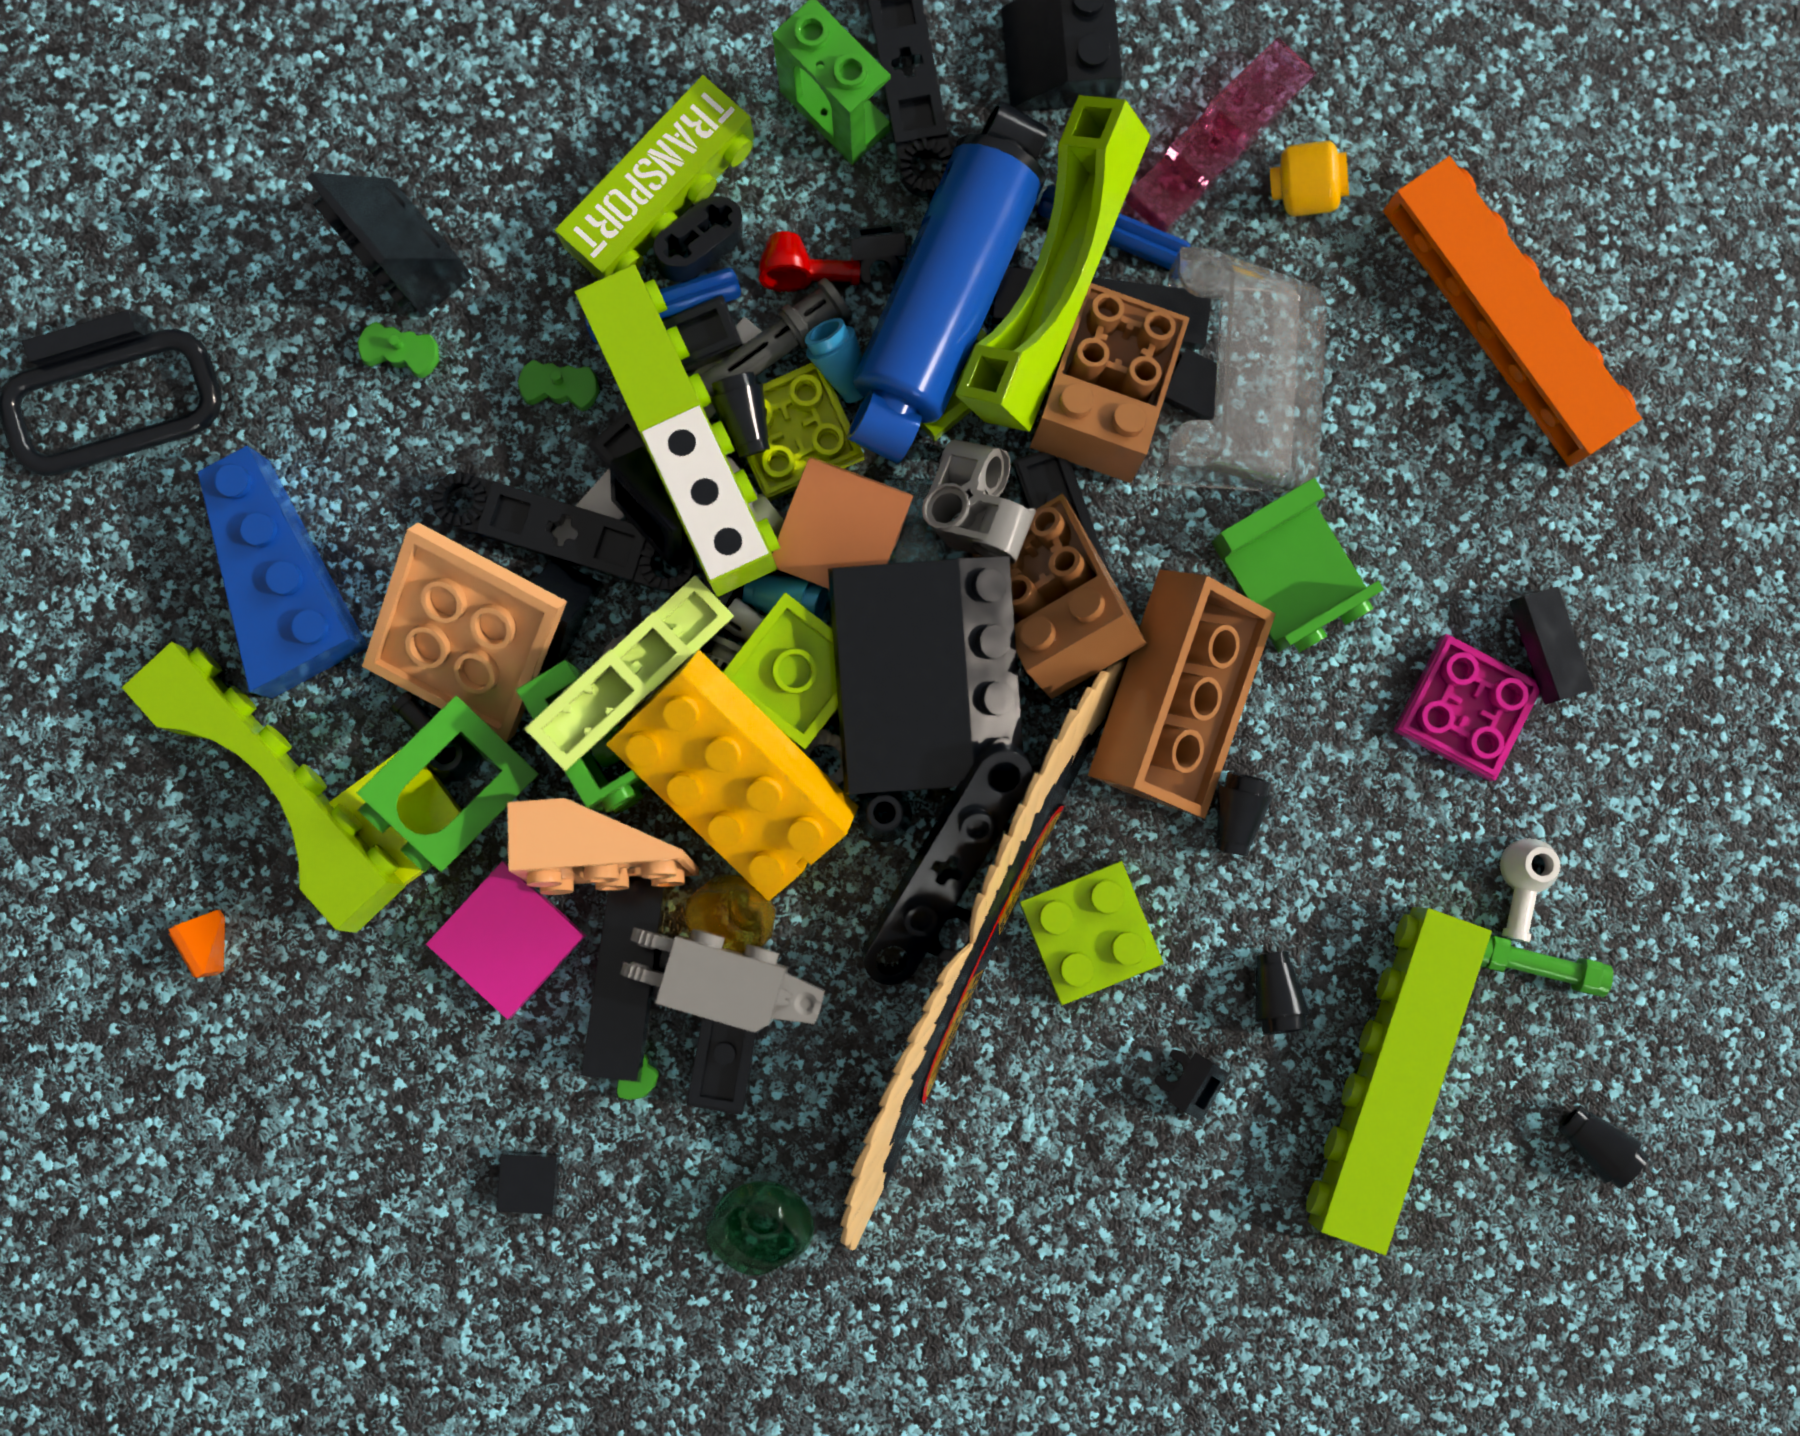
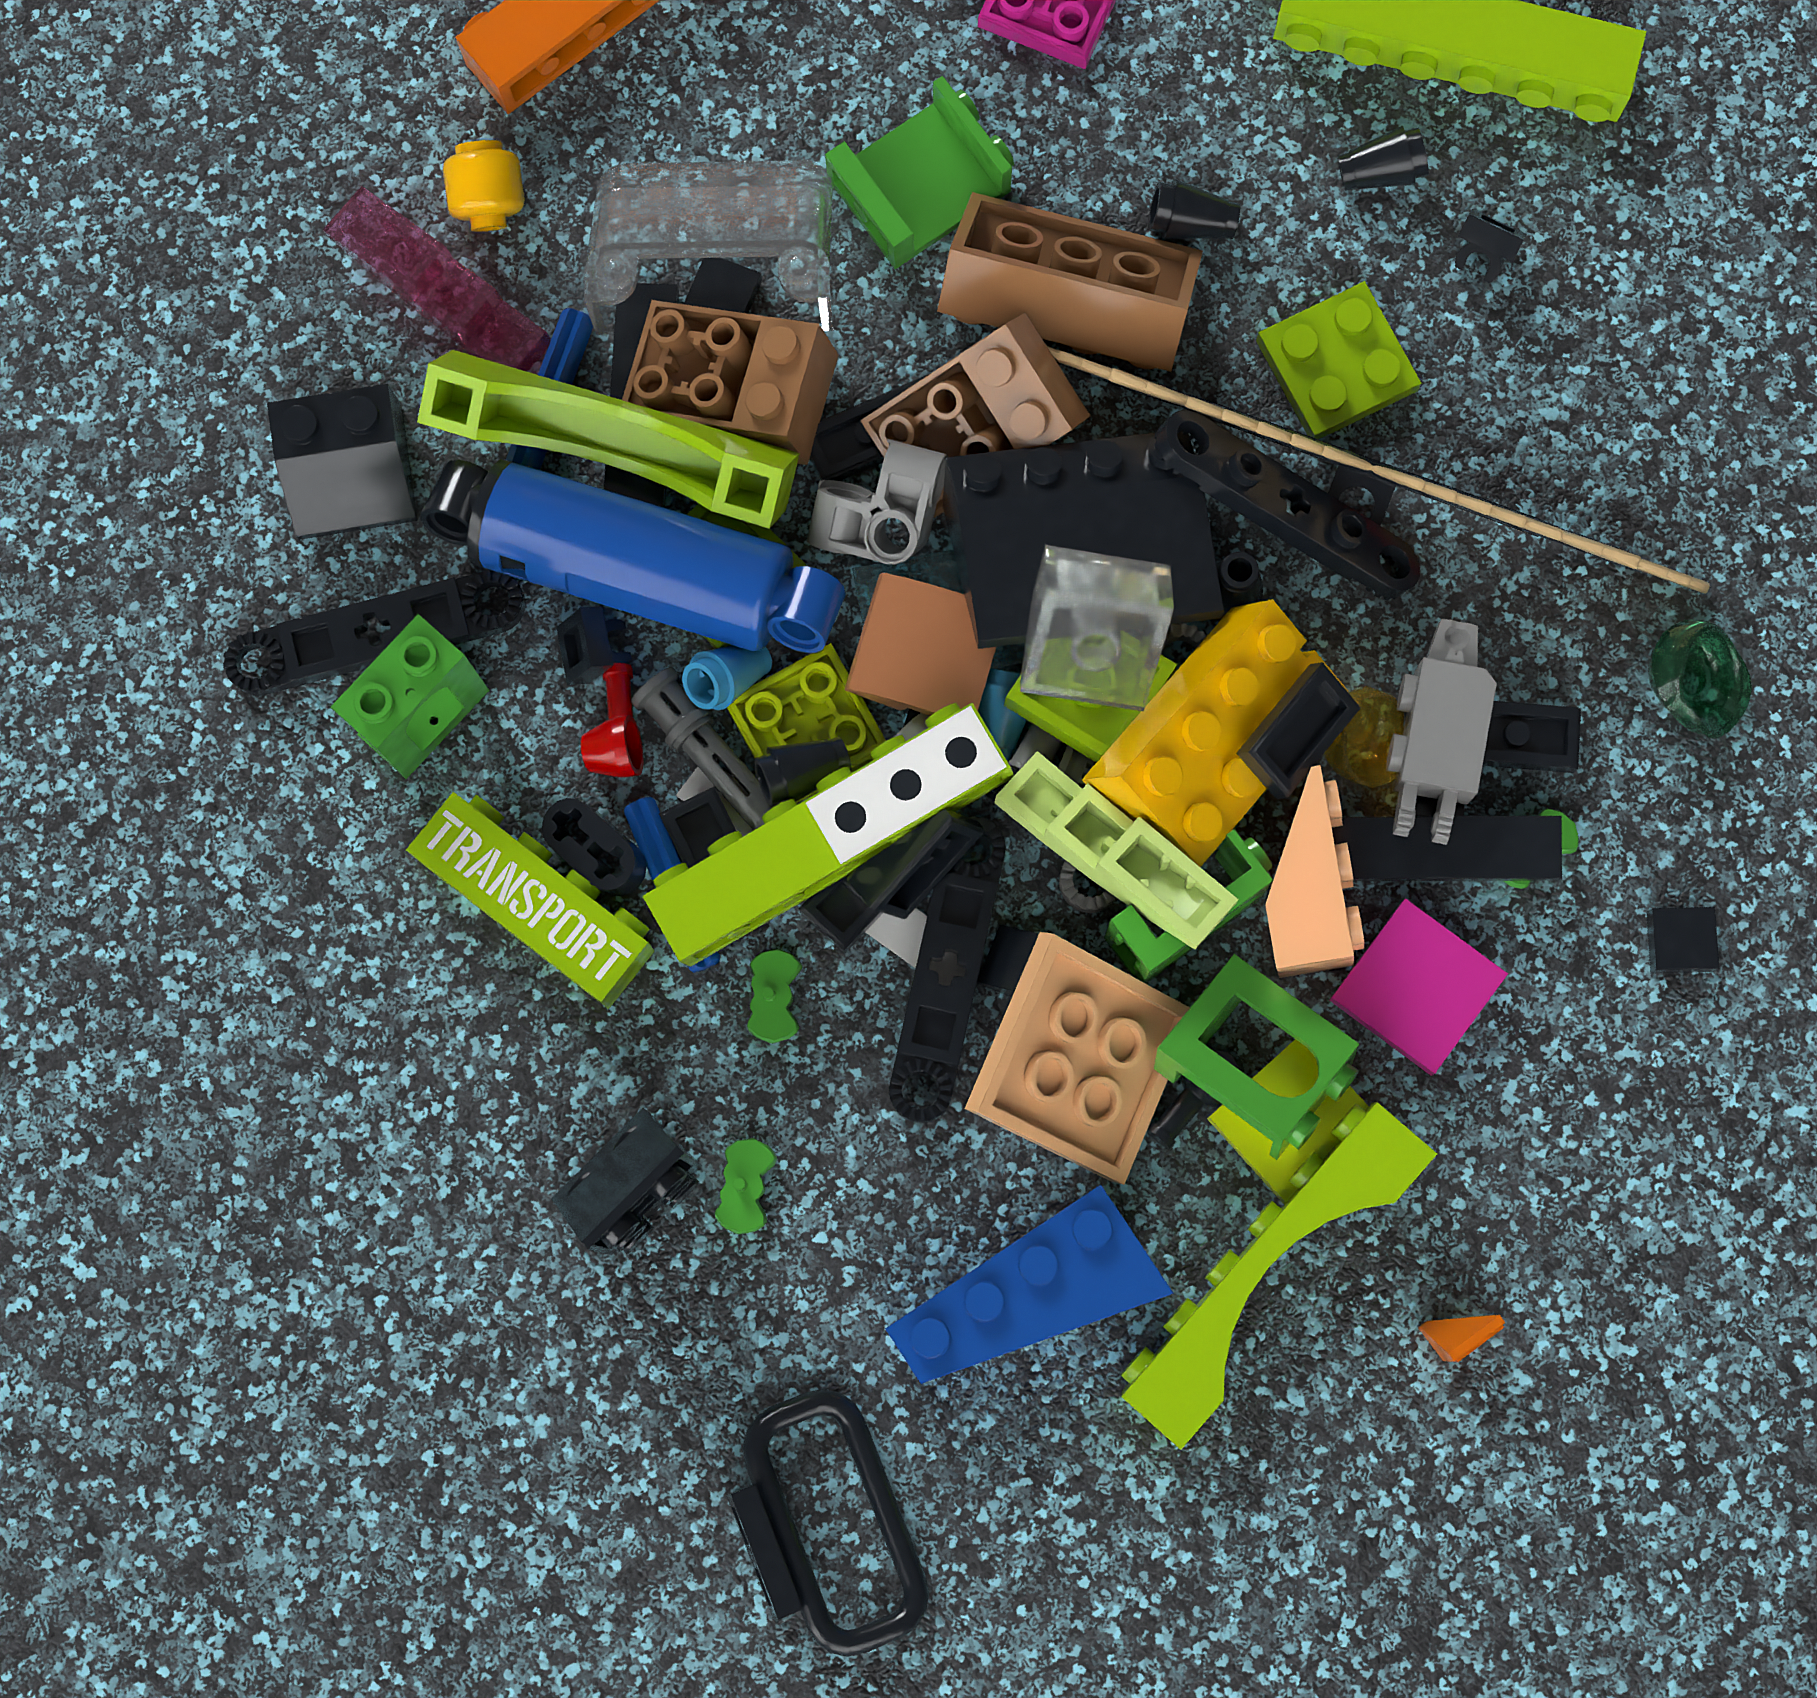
camera: 85 degrees left, 5 degrees down
(722, 845) = (1298, 730): none -> black tile
(832, 671) = (1096, 628): none -> clear slope

